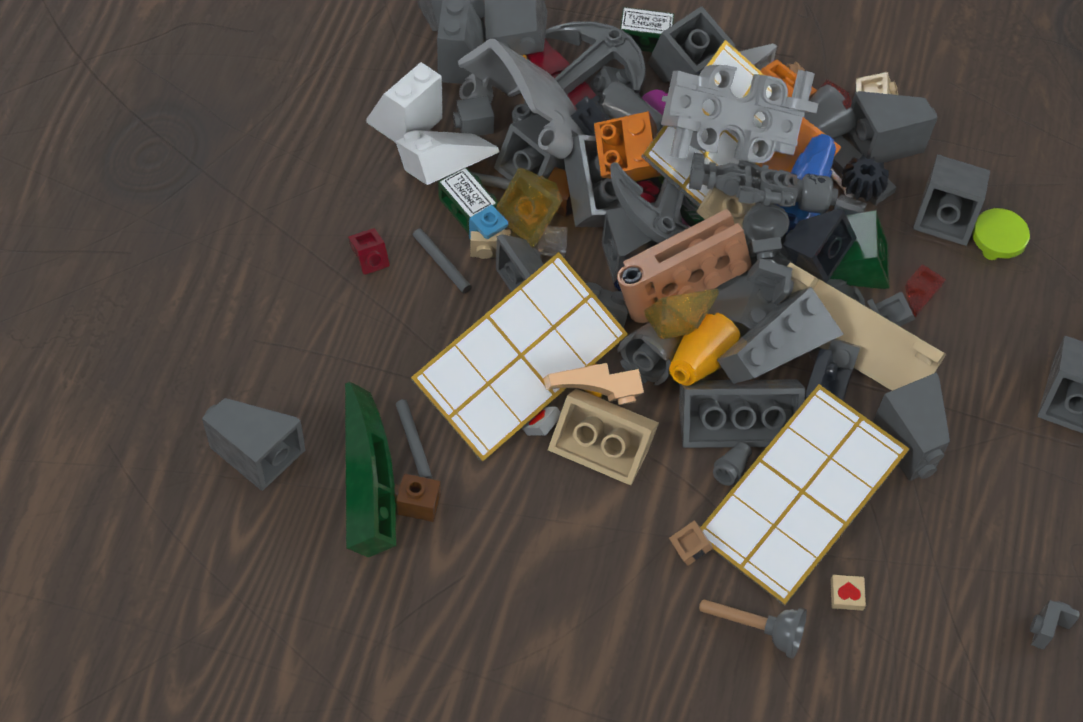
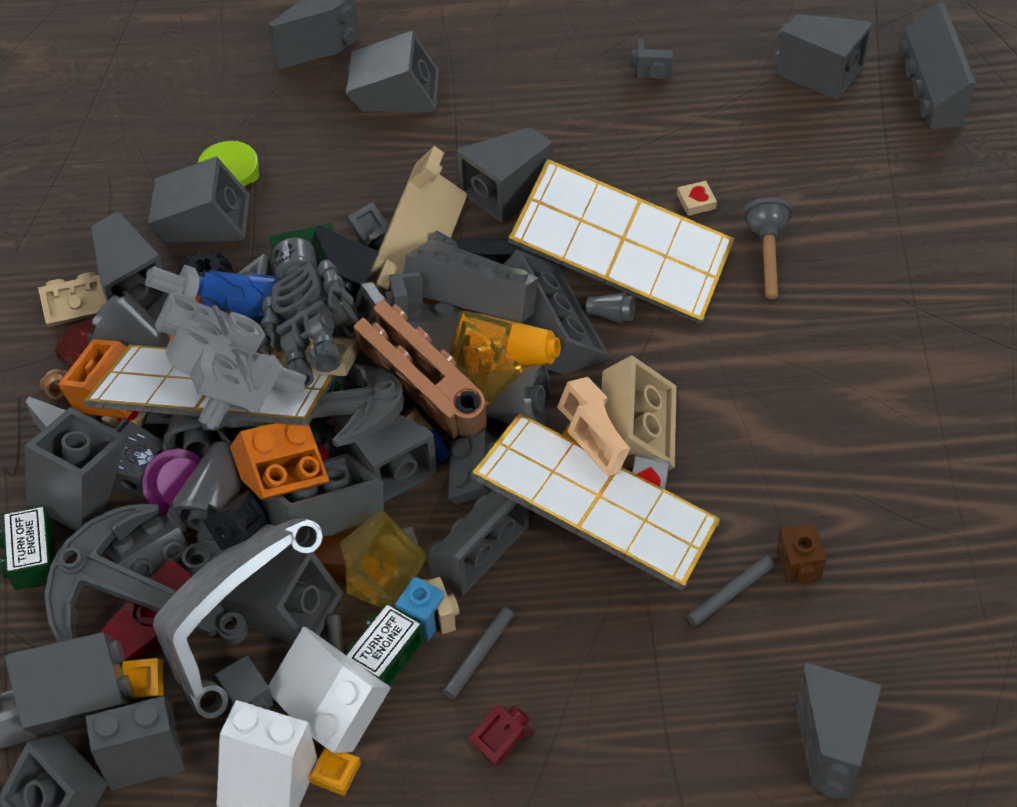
camera: 105 degrees left, 5 degrees down
(368, 477) = (804, 606): dark green slope -> none
(389, 155) = (334, 771): none -> light orange tile
(691, 543) = (718, 315): medium nougat plate -> none
(922, 288) = (318, 212): clear red tile -> none

